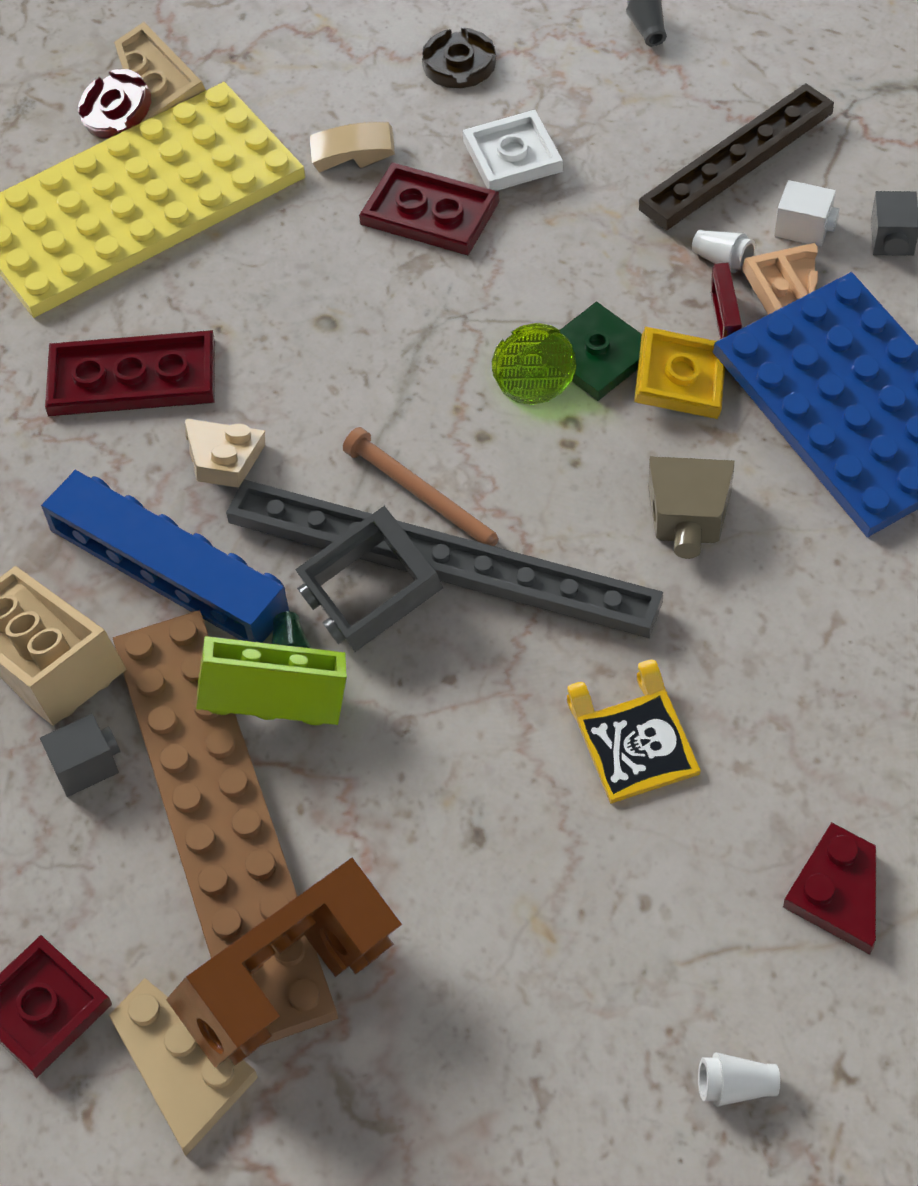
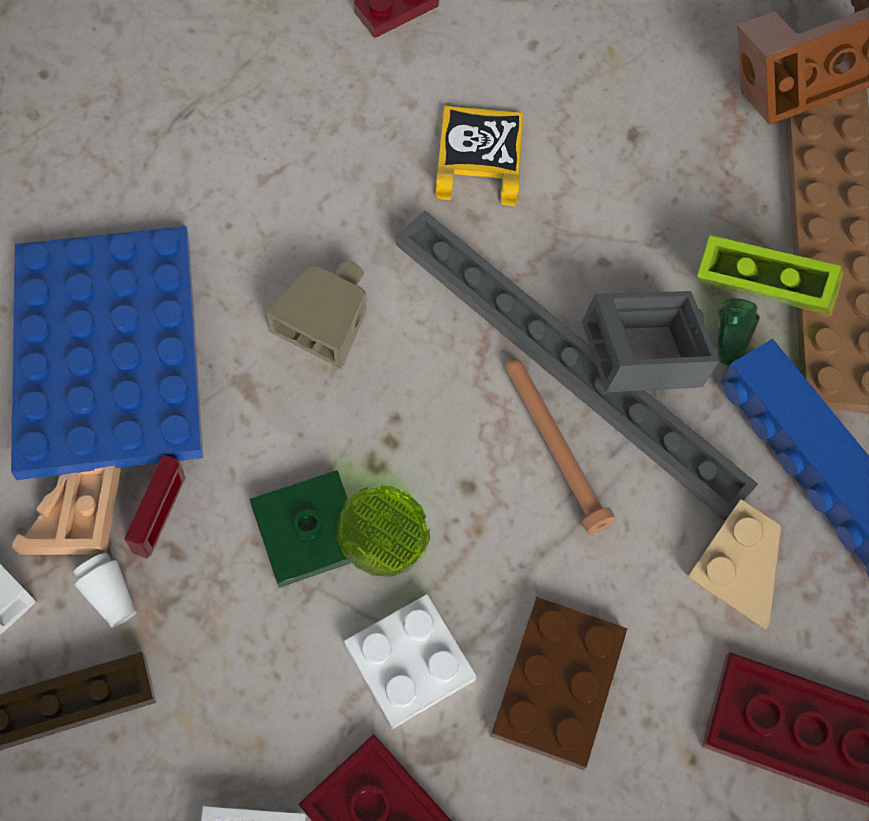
camera: 165 degrees left, 10 degrees up
(342, 332) = (559, 683): none -> reddish brown plate
(465, 300) = (409, 661): none -> white plate
(679, 373) = (247, 455): yellow tile -> none

